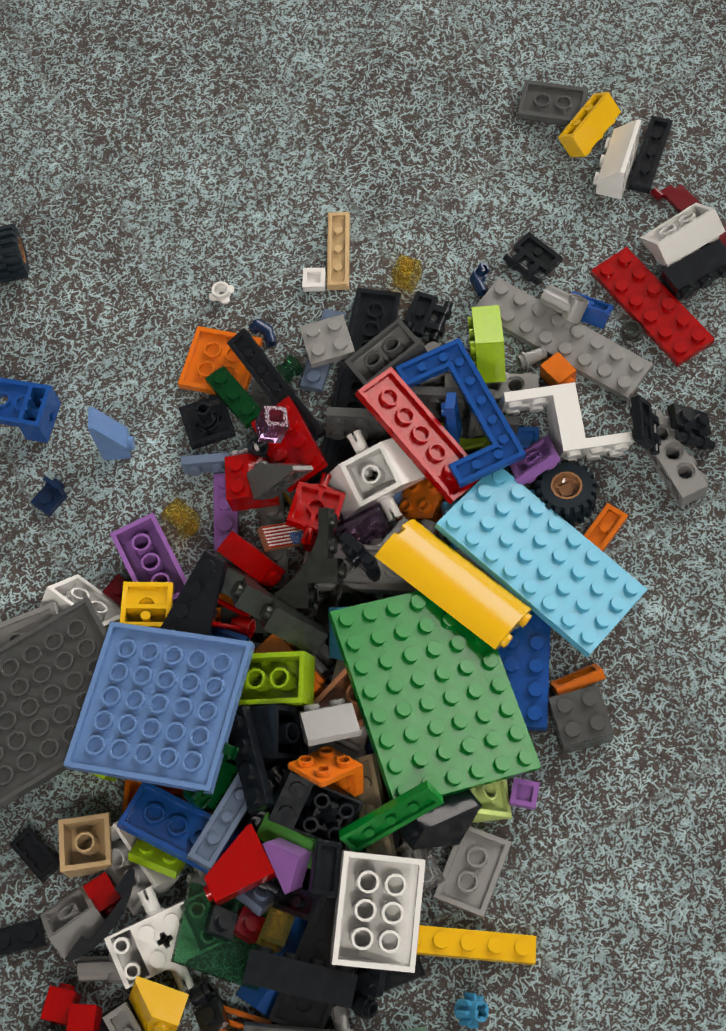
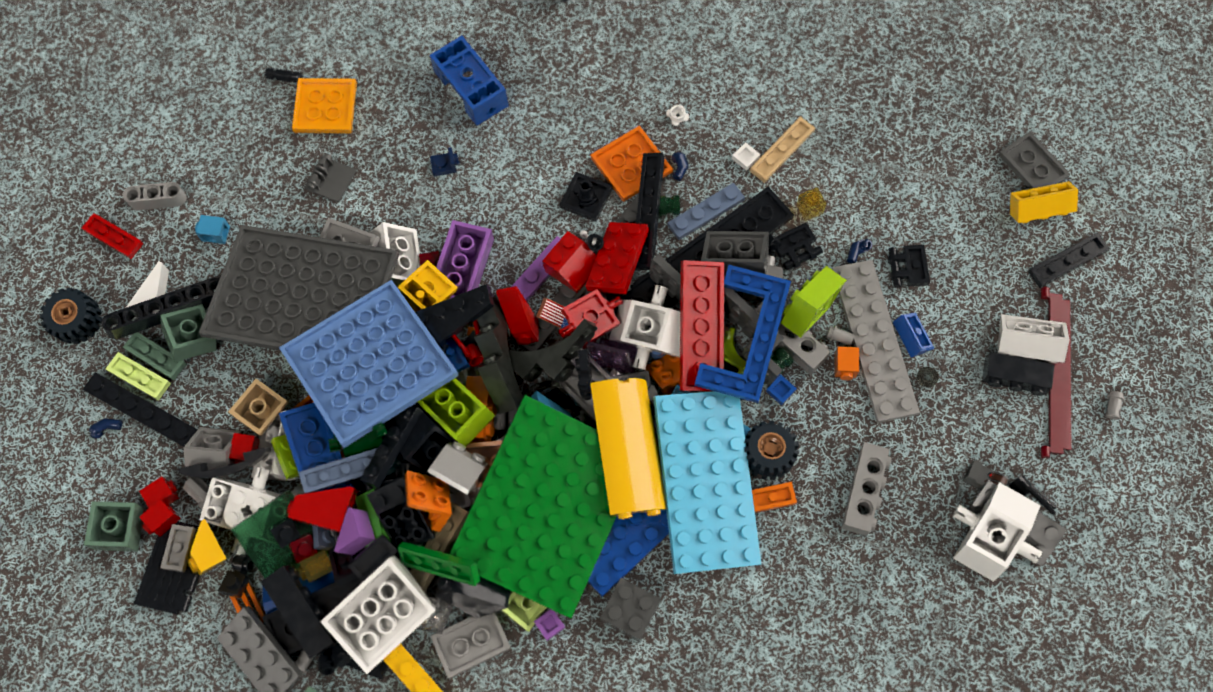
camera: 35 degrees right, 5 degrees up
(35, 854) = (229, 386): black plate -> none
(109, 436) = (512, 154): medium blue slope -> none
(181, 518) = (508, 248): clear yellow brick -> none
(197, 464) = (551, 220): sand blue plate -> none
(234, 396) = (616, 194): dark green plate -> none
(272, 424) = (613, 235): brick -> none
(272, 479) = (582, 272): dark grey slope -> none
(327, 341) = (712, 207): light grey plate -> none
(450, 410) = (737, 332): blue plate -> none
(539, 458) = (768, 410): medium lavender plate -> none
(565, 422) = (812, 402): white bracket -> none
(569, 305) = (899, 321): light grey piece -> none
(577, 679) = (654, 582): orange tile -> none
(618, 160) = (1038, 245): white slope -> none
(645, 424) = (864, 452): black plate -> none
(652, 306) = (960, 371): red plate -> none
(691, 425) = (904, 476): black plate -> none

